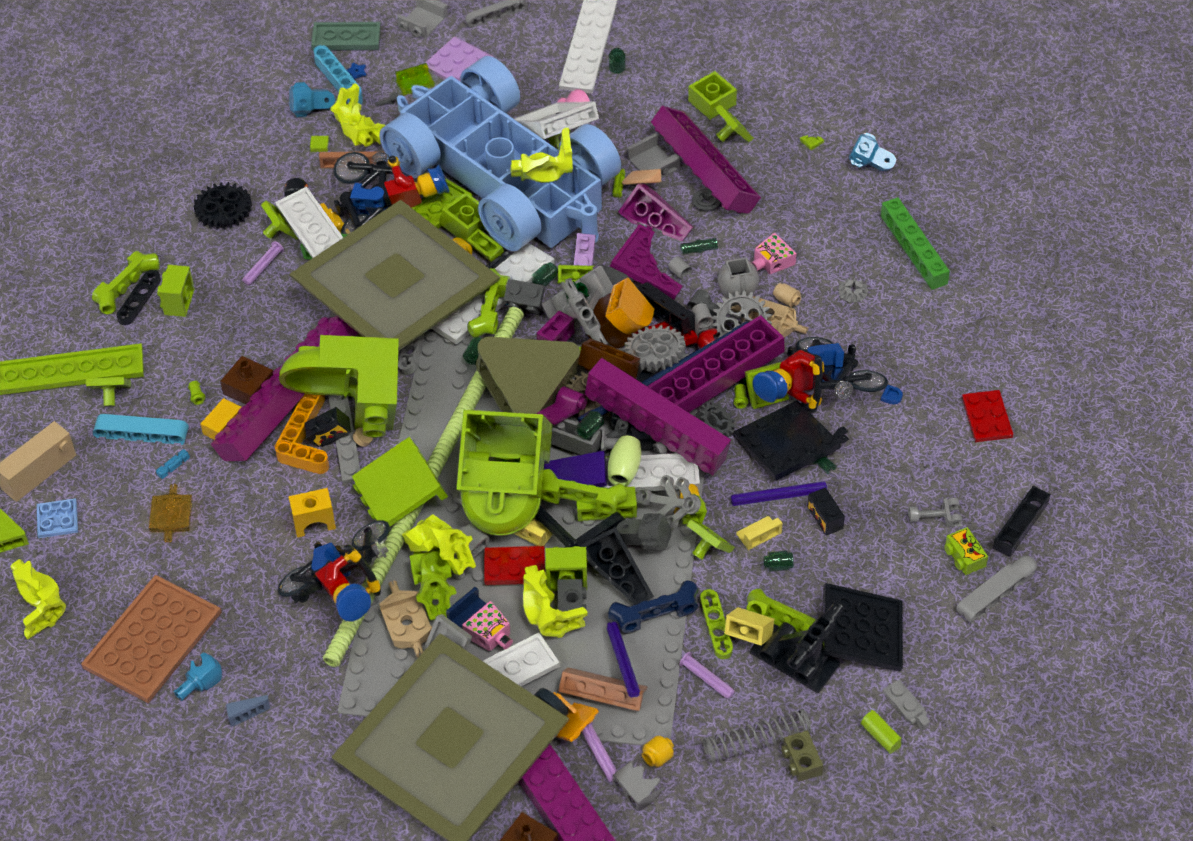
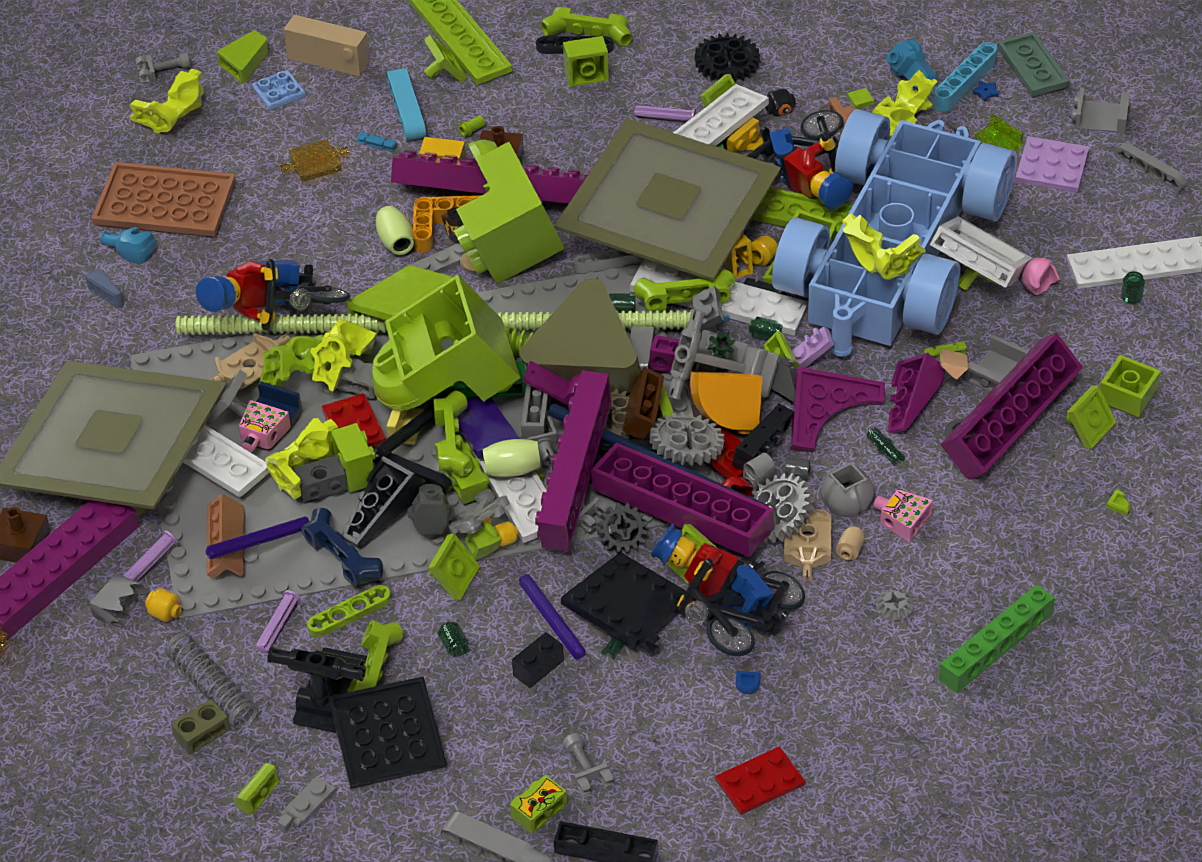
camera: 70 degrees right, 5 degrees down
(300, 476) = (394, 230): none -> yellowish green piece
(311, 508) = (349, 247): yellow piece -> none
(578, 714) = (175, 503): light orange plate -> none
(589, 424) = (539, 410): clear green brick -> none
(679, 267) = (840, 438): light grey beam -> none
(749, 626) = (345, 631): light yellow brick -> none
(760, 532) = (488, 613): light yellow panel -> none
(867, 152) = (1119, 550): piece -> none

